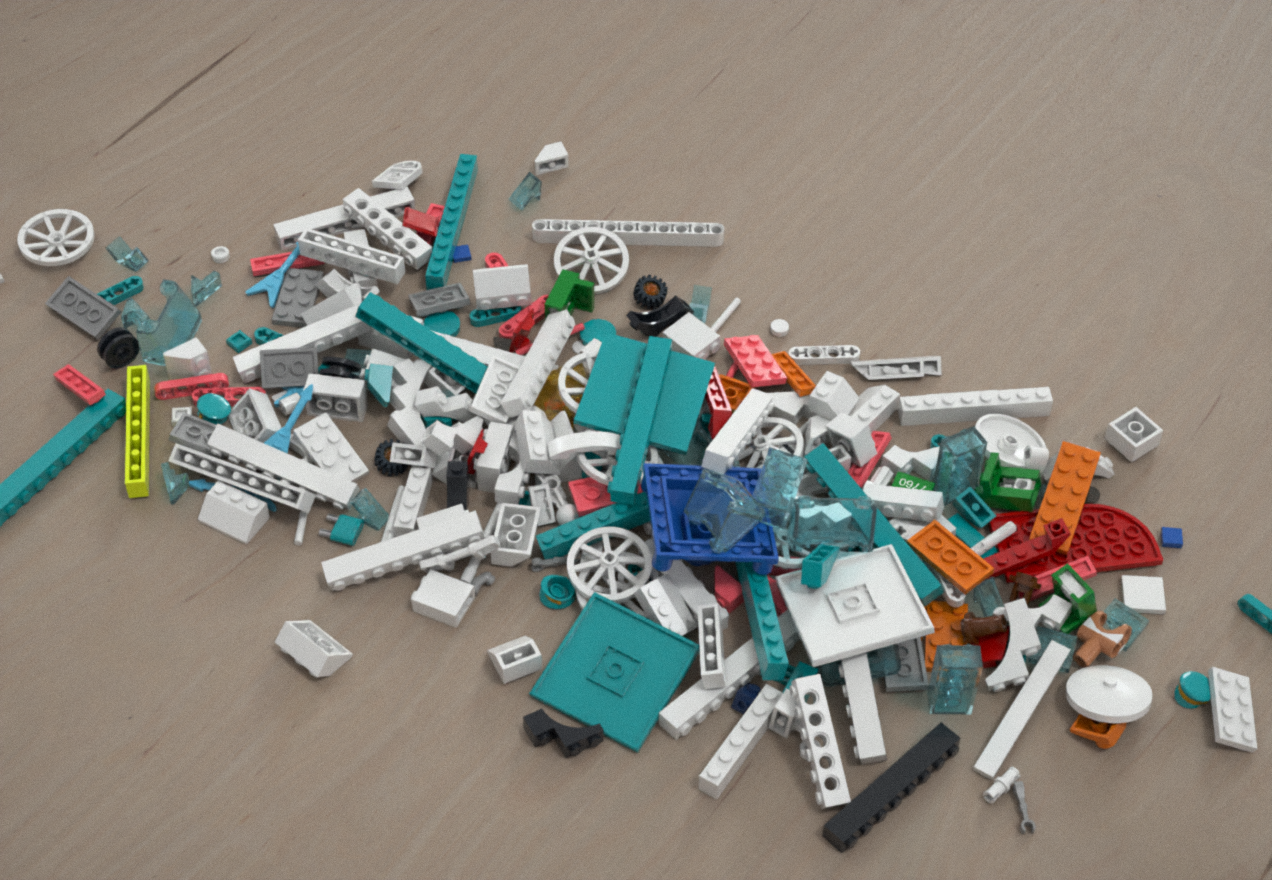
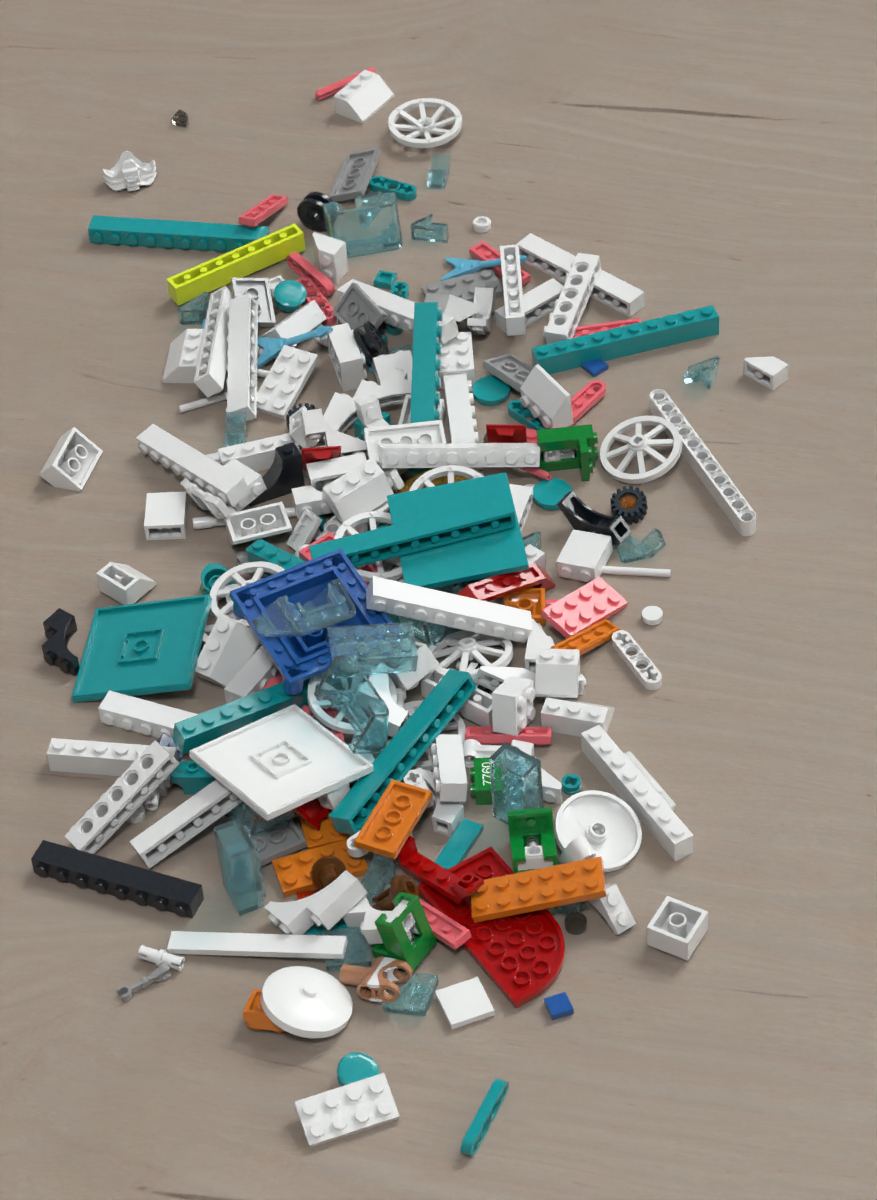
camera: 70 degrees right, 5 degrees down
(345, 530) = (209, 429): teal piece -> none
(379, 382) = (369, 368): slope -> none
(398, 175) = (660, 283): white tile -> none
(420, 221) = (597, 315): piece -> none
(478, 581) = (206, 533): light grey arm -> none
(583, 442) = (360, 510): white slope -> none
(711, 646) = (189, 690): white brick -> none
(818, 565) = (310, 719): teal slope -> none
(899, 367) = (658, 720): white wedge -> none
(973, 508) = (489, 829): teal slope -> none
(994, 538) = (448, 854): white axle -> none

